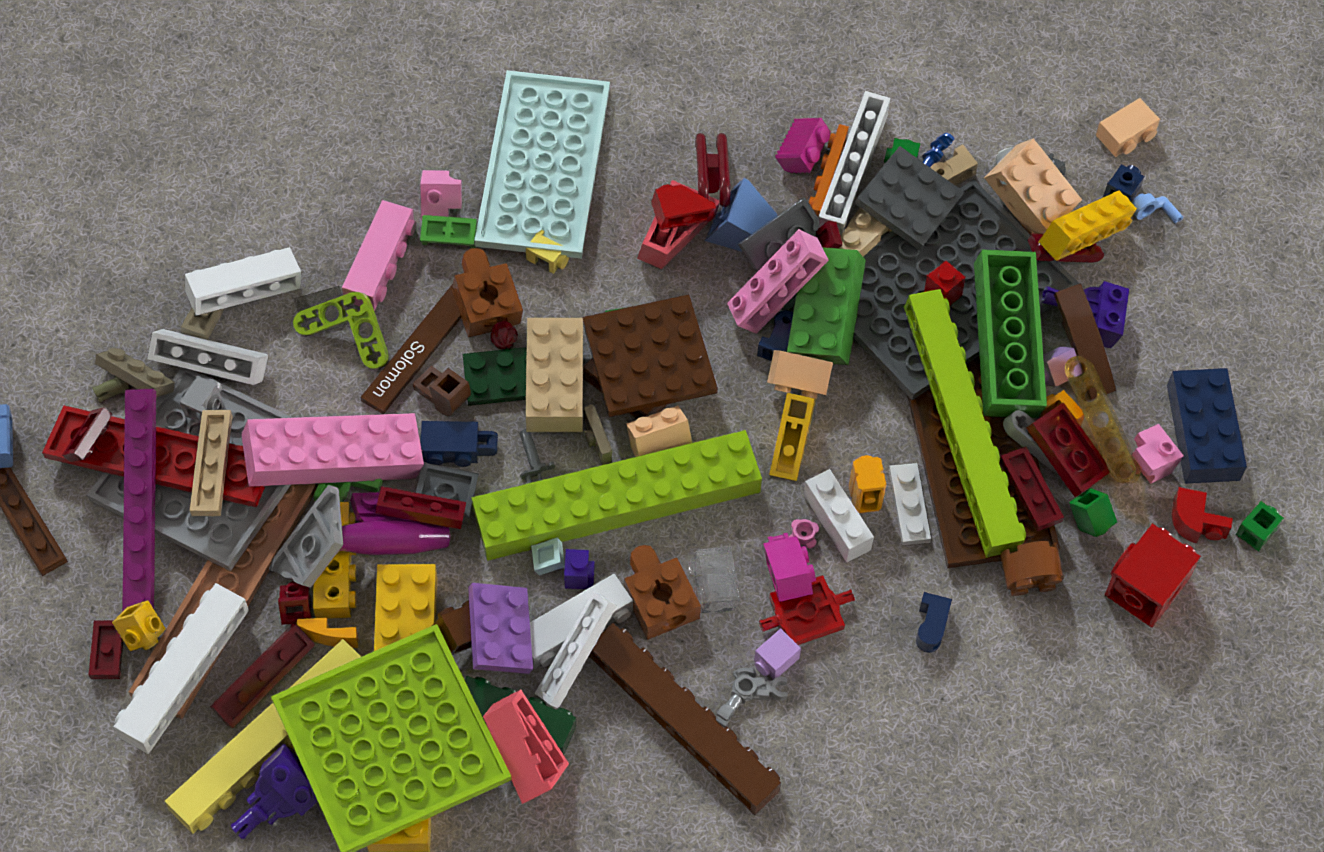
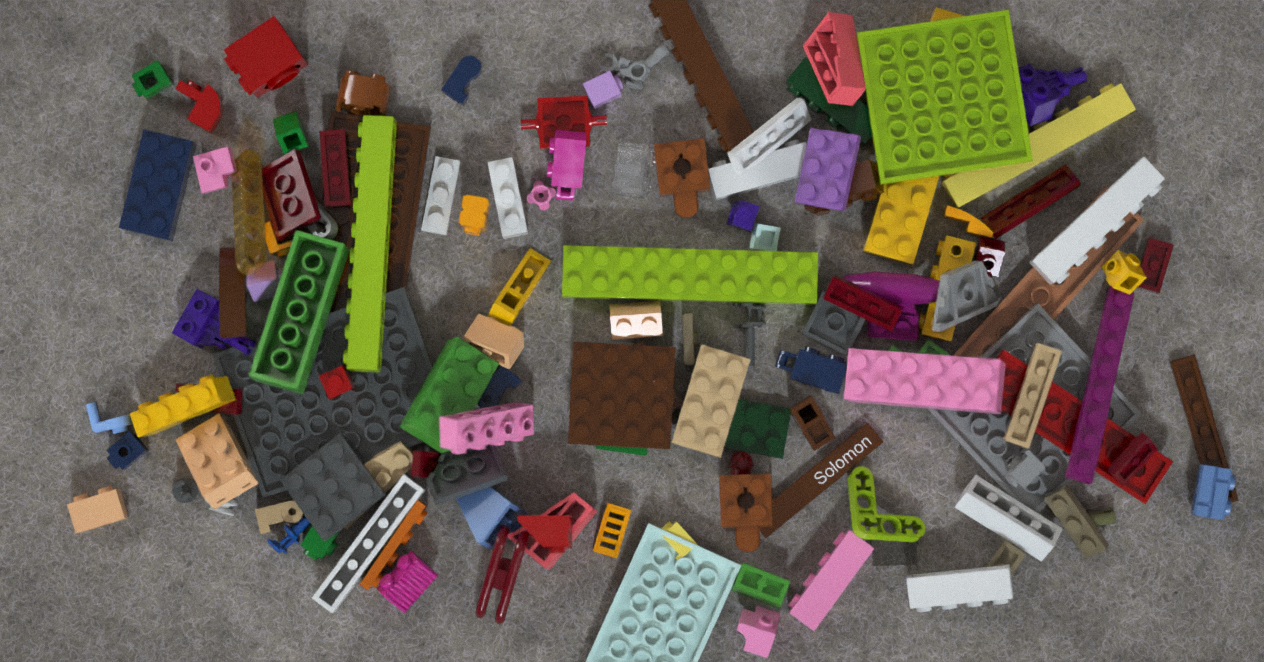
camera: 155 degrees left, 25 degrees up
(616, 264) = (618, 510): none -> light orange slope

